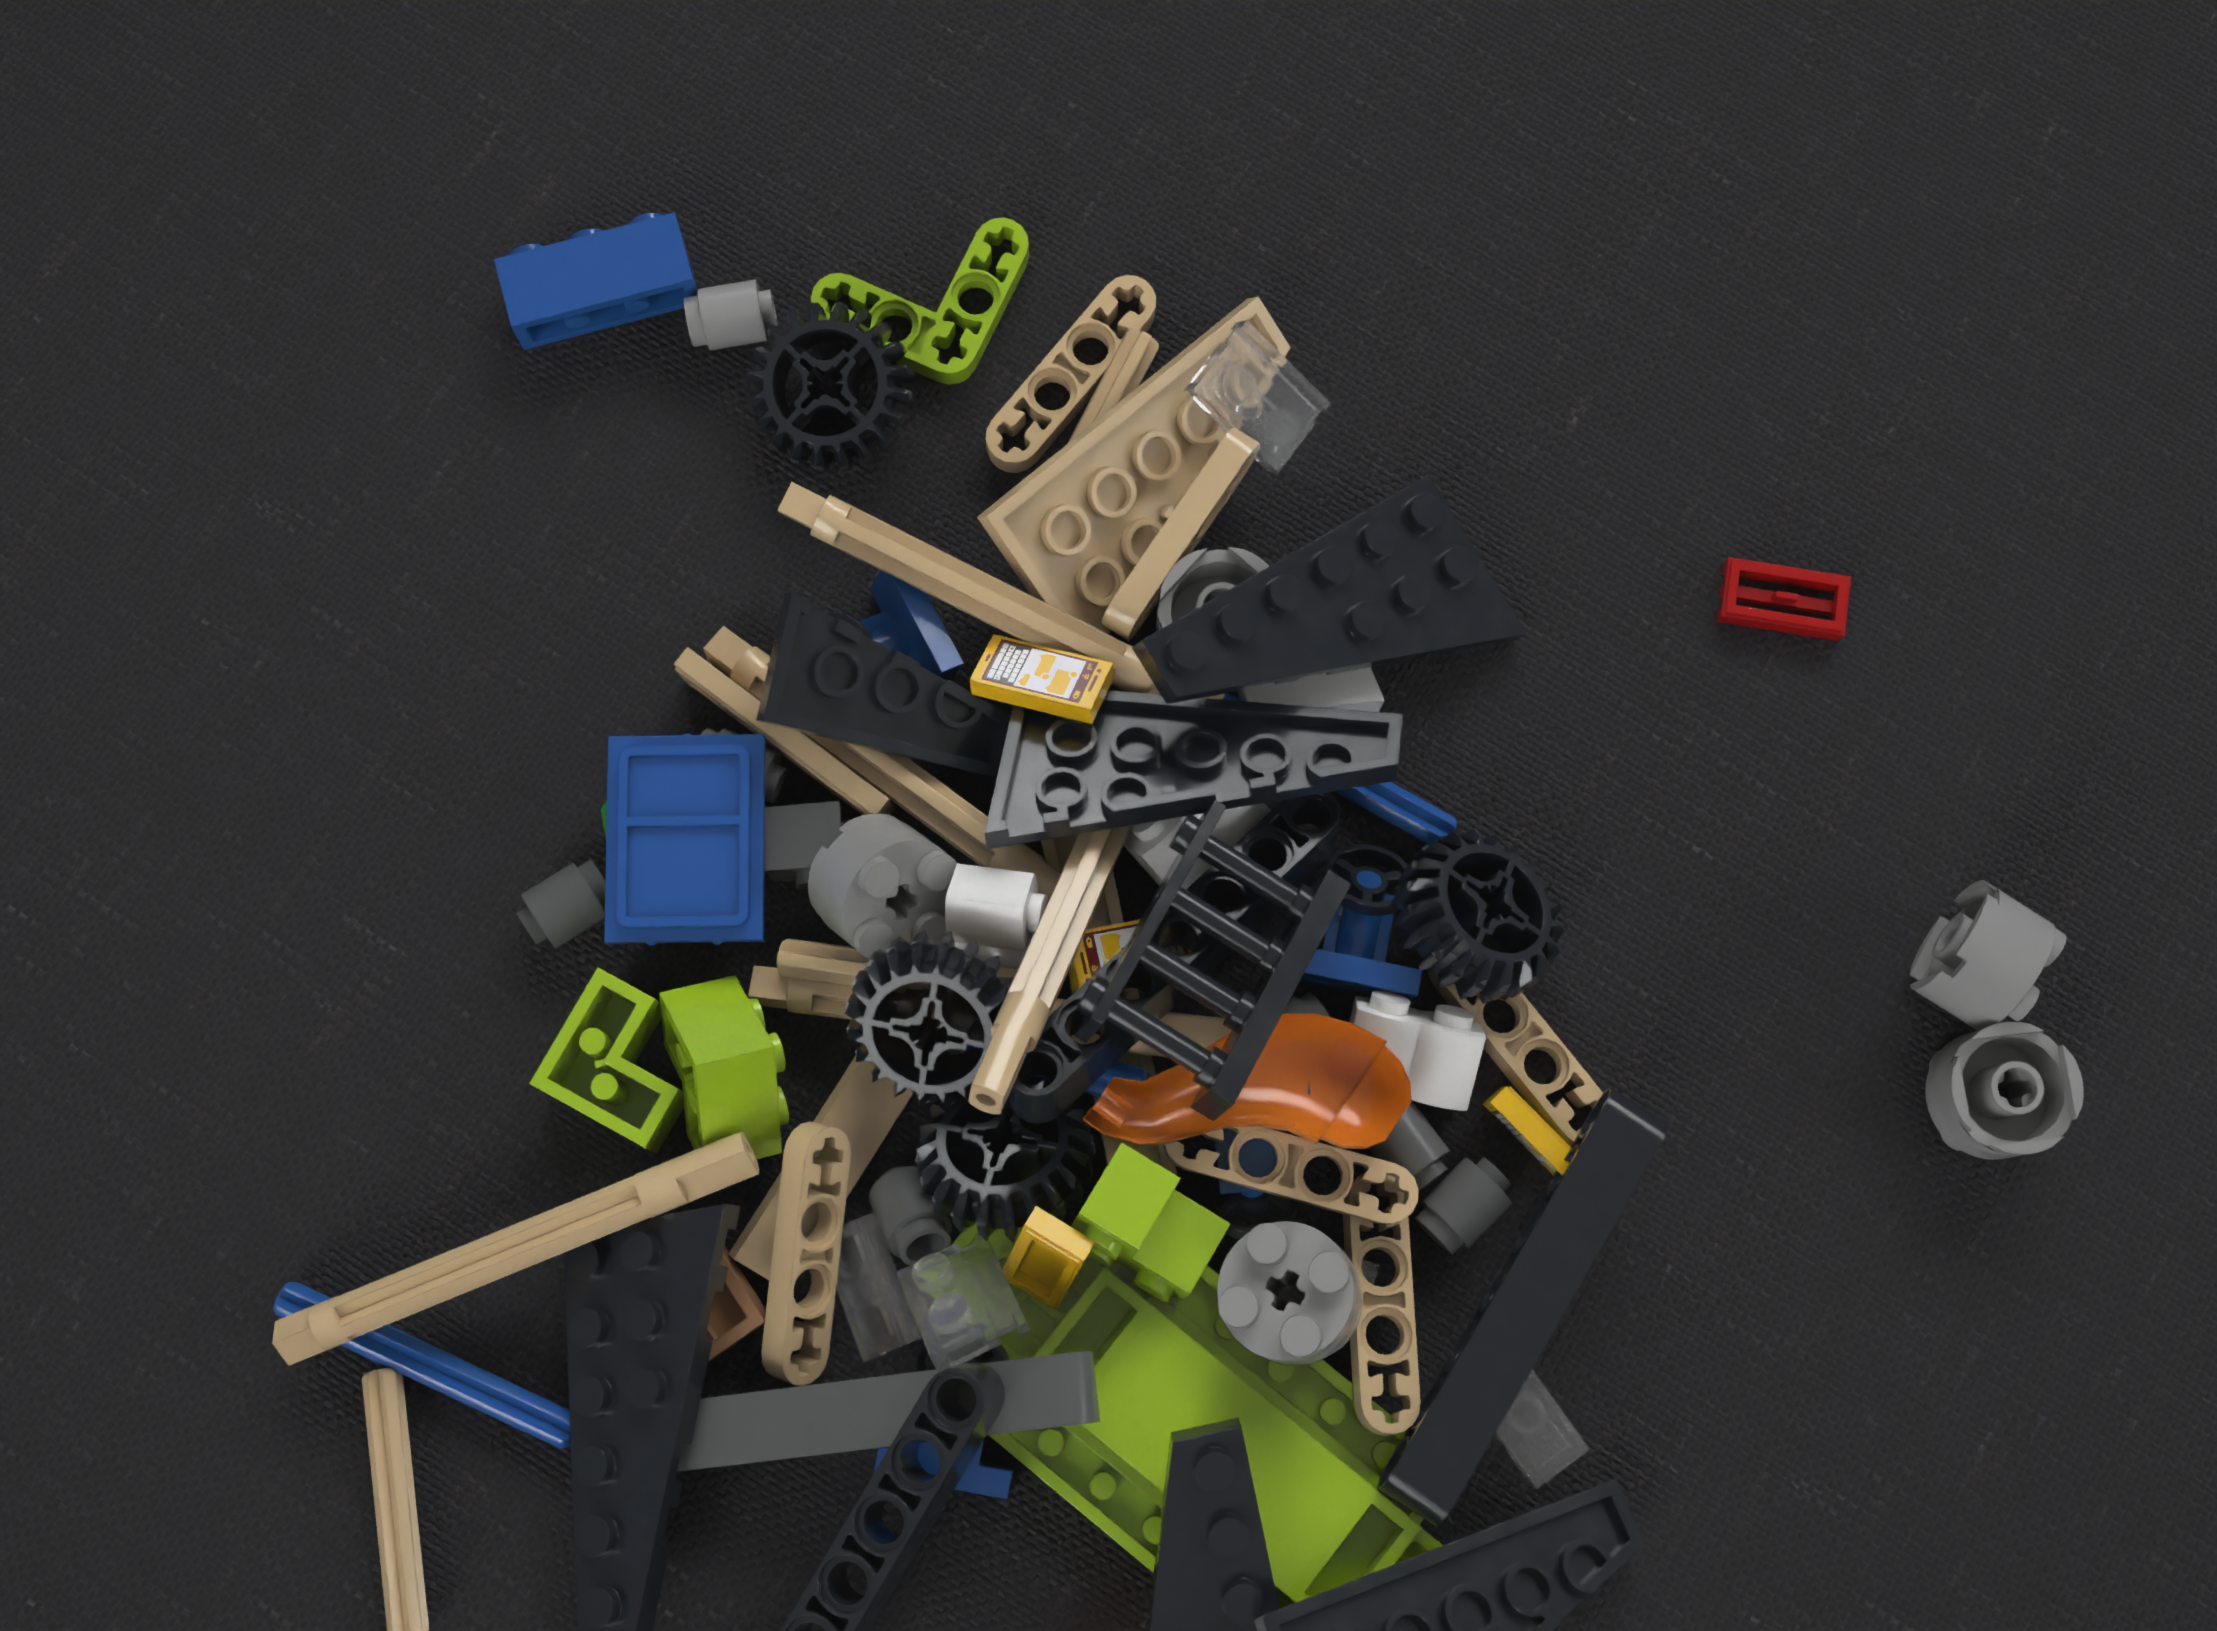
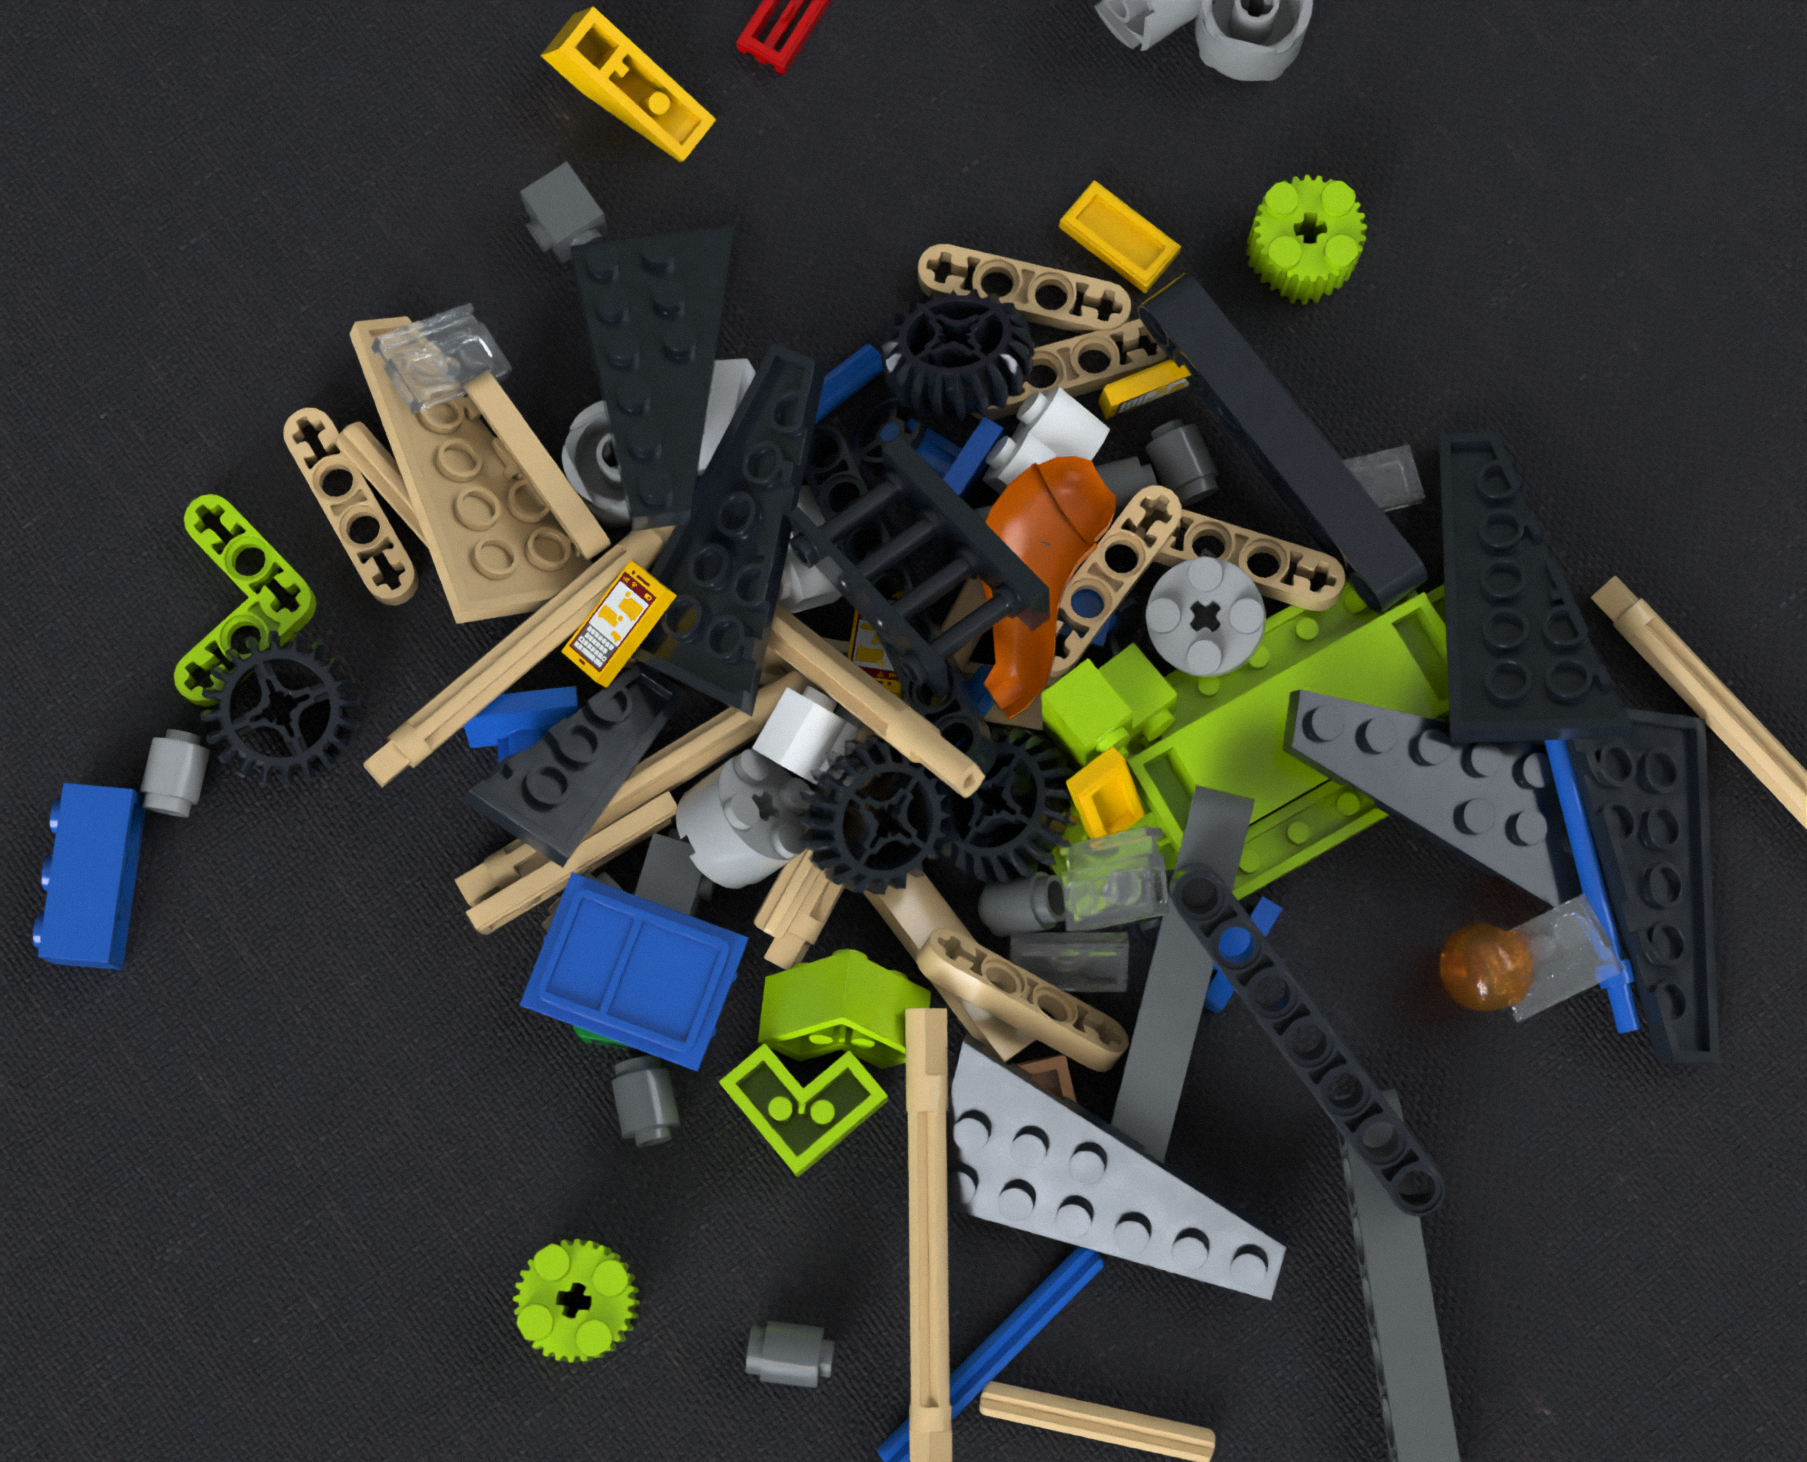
camera: 65 degrees left, 0 degrees up
(305, 895) = (542, 1294): none -> lime brick
(356, 1152) = (789, 1353): none -> dark grey brick
(1463, 455) = (563, 212): none -> dark grey brick
(1597, 961) = (1026, 281): none -> tan beam
(1631, 466) = (627, 83): none -> yellow slope
(1691, 1042) = (1119, 236): none -> yellow tile
(1809, 1237) = (1313, 211): none -> lime brick

